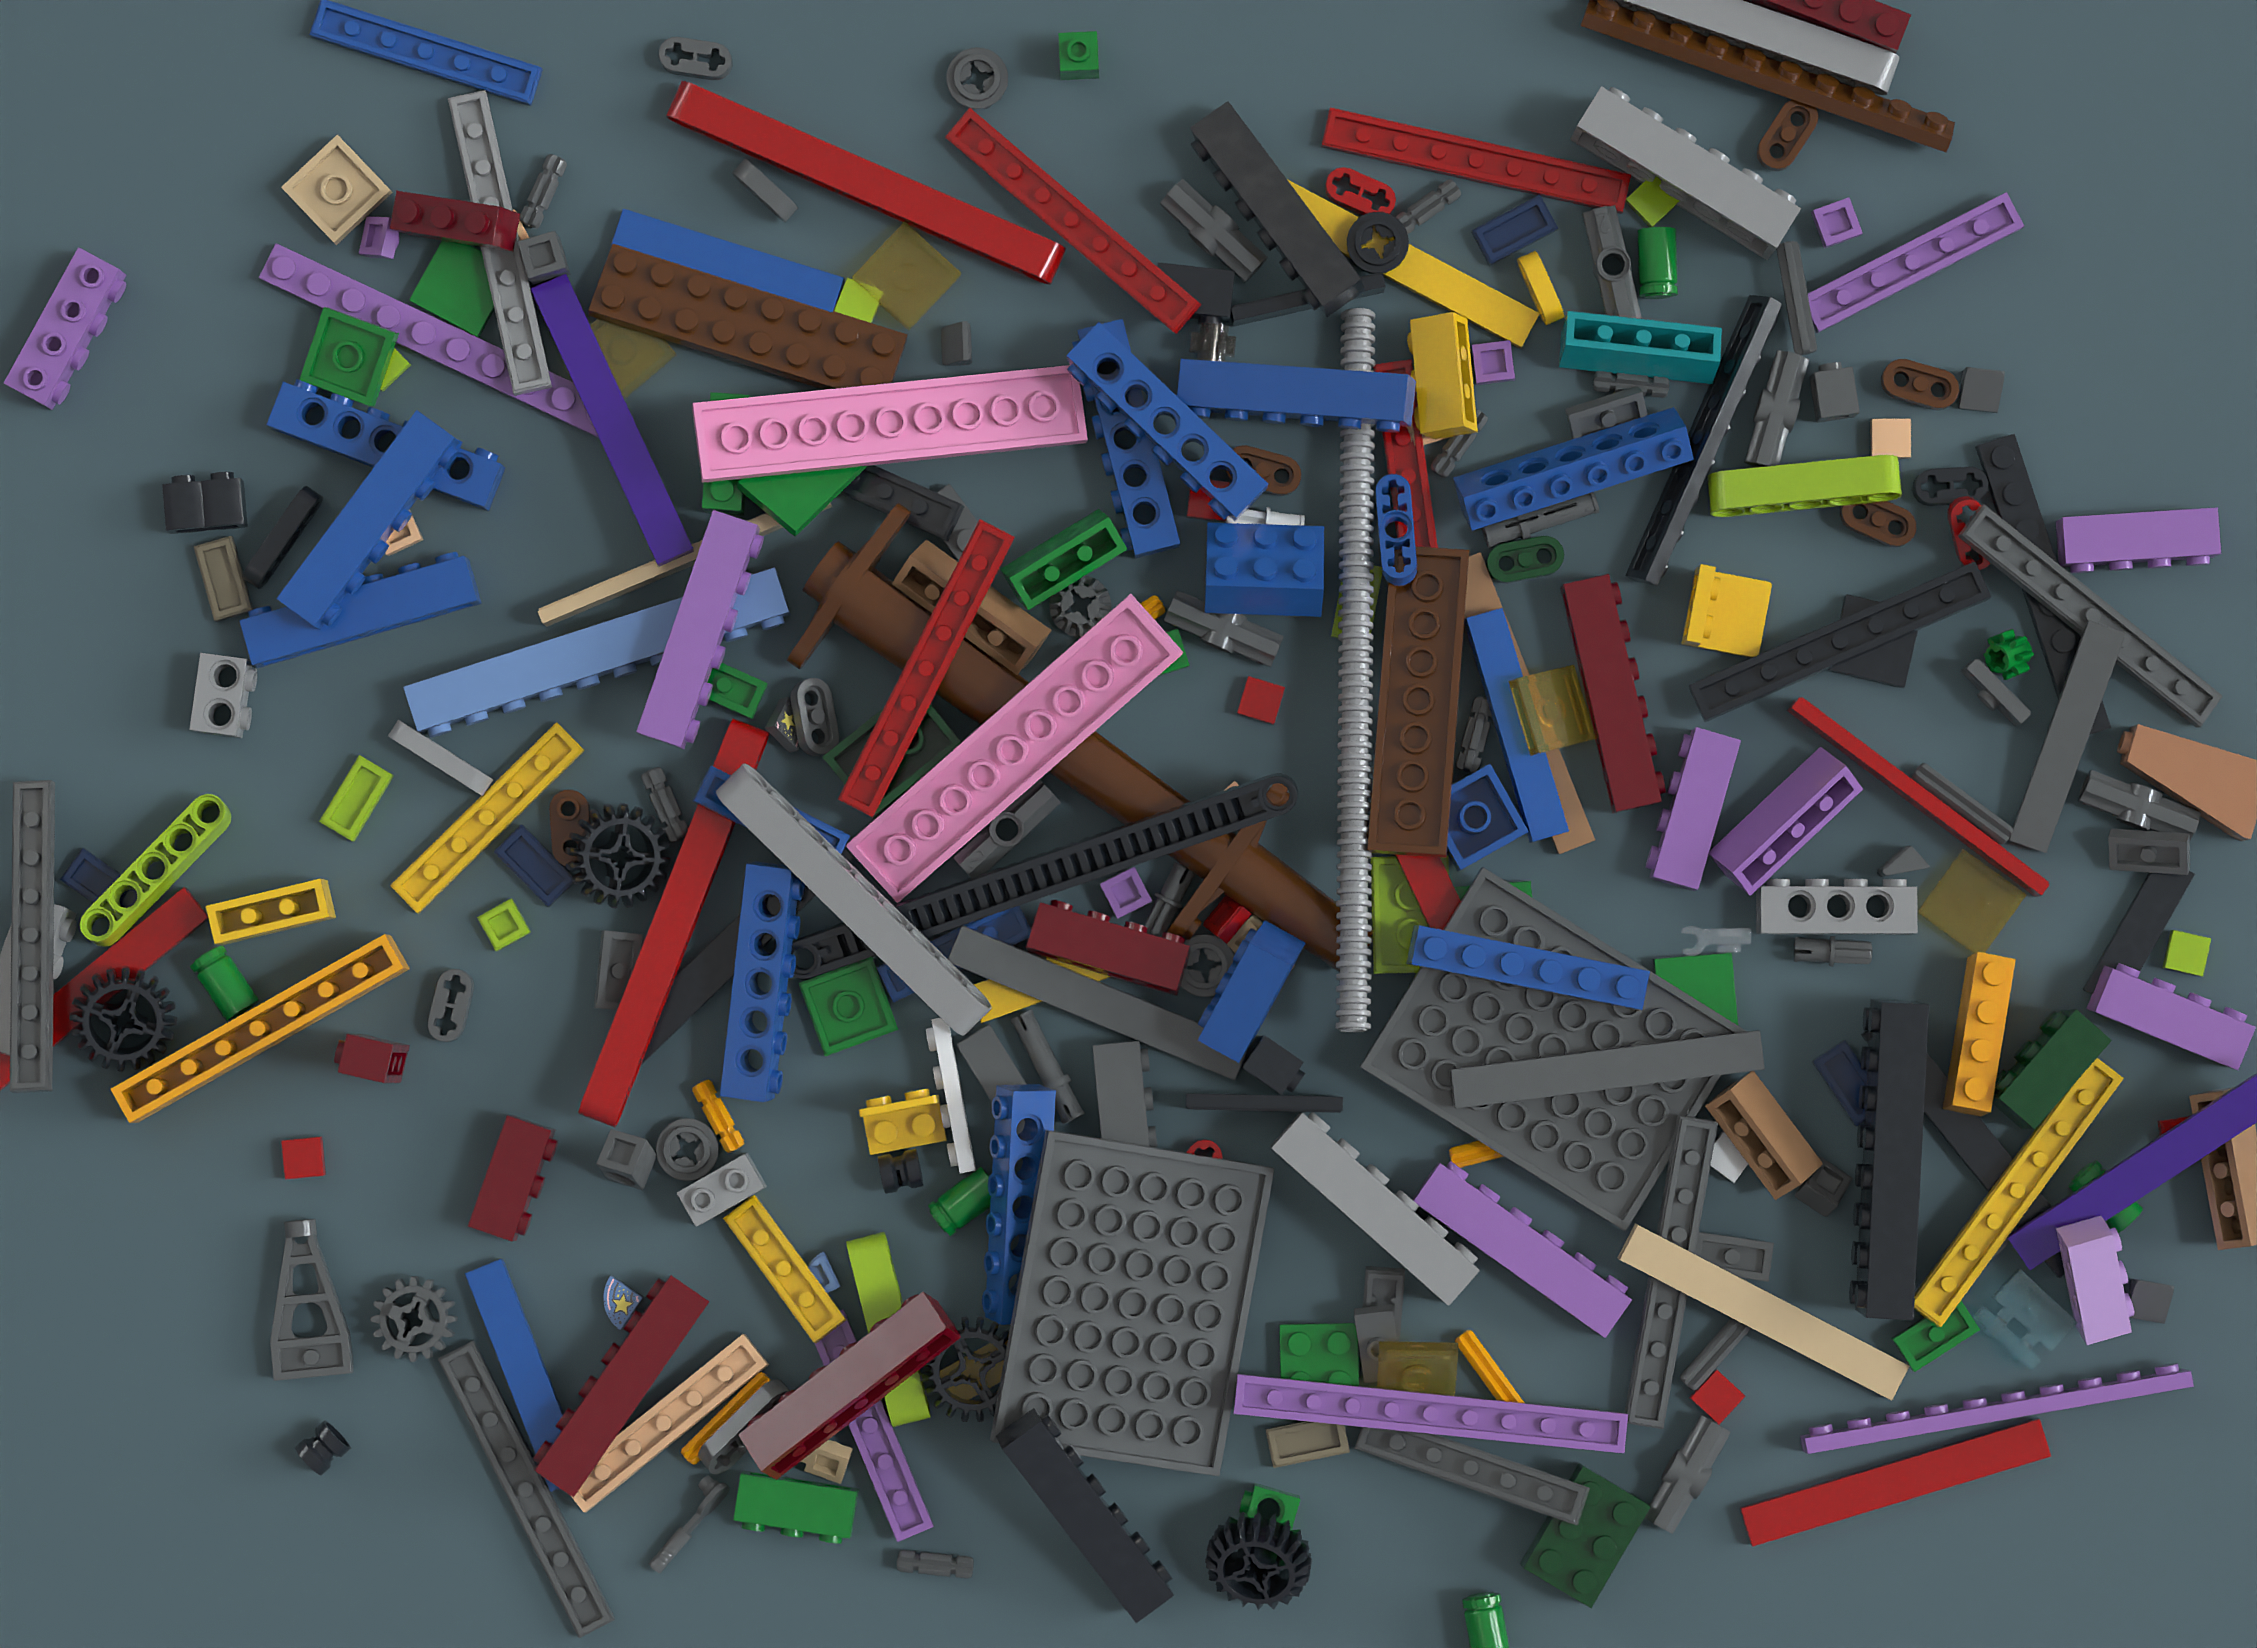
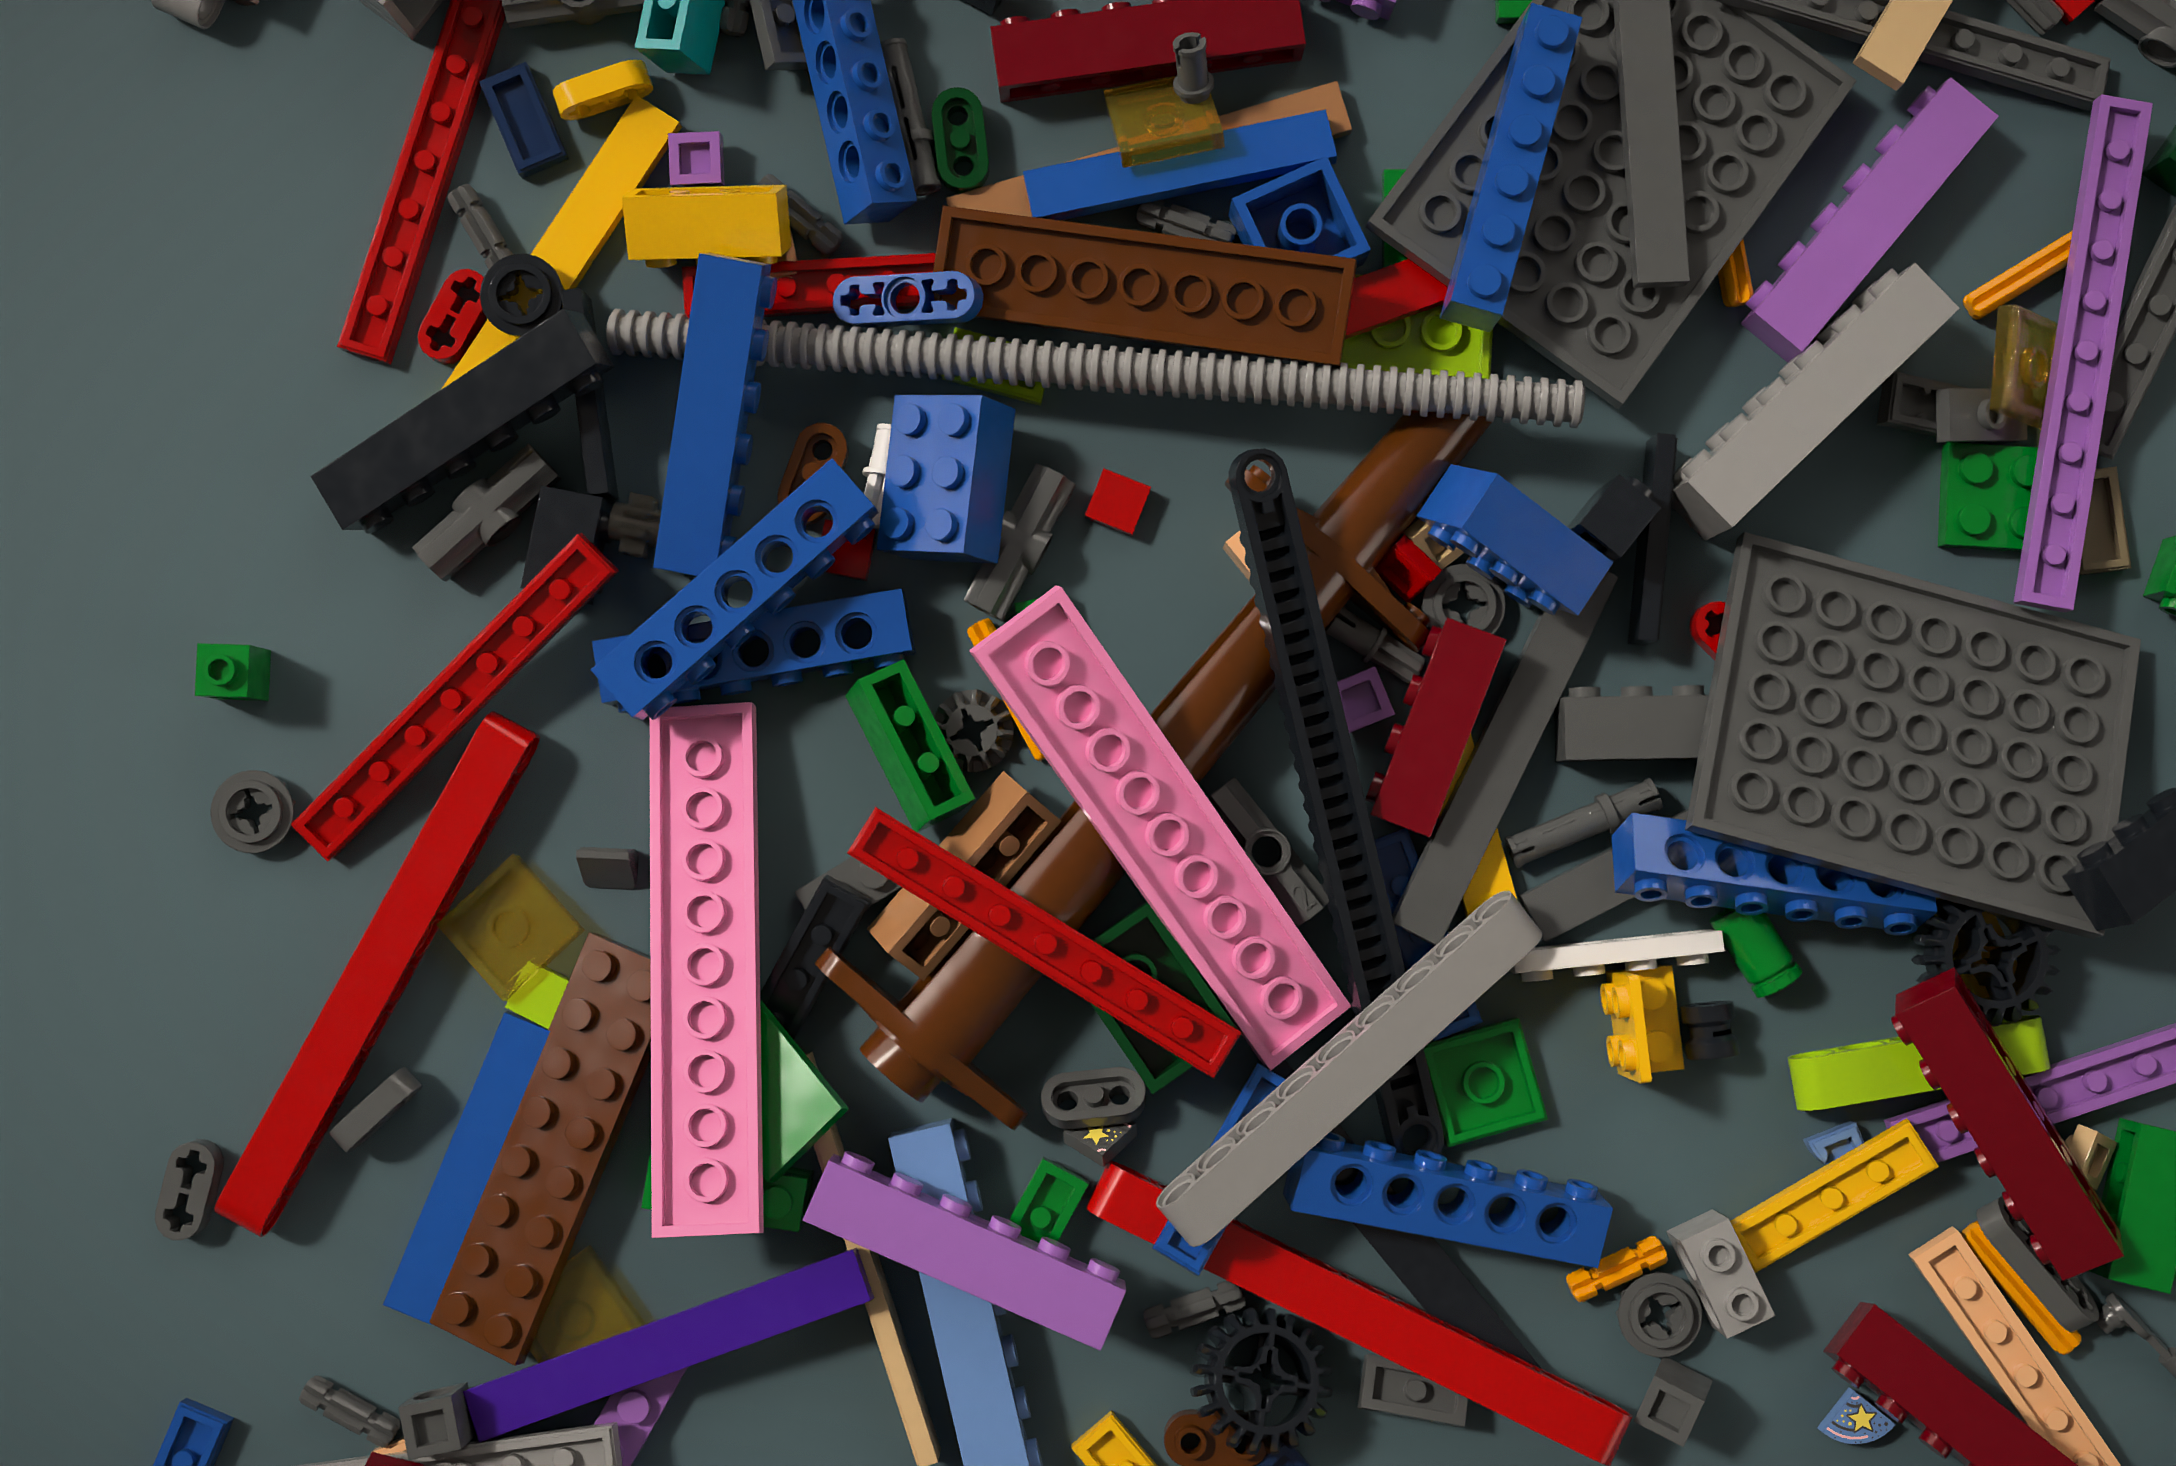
camera: 85 degrees left, 0 degrees up
(1581, 728) = (1192, 79): none -> dark grey pin

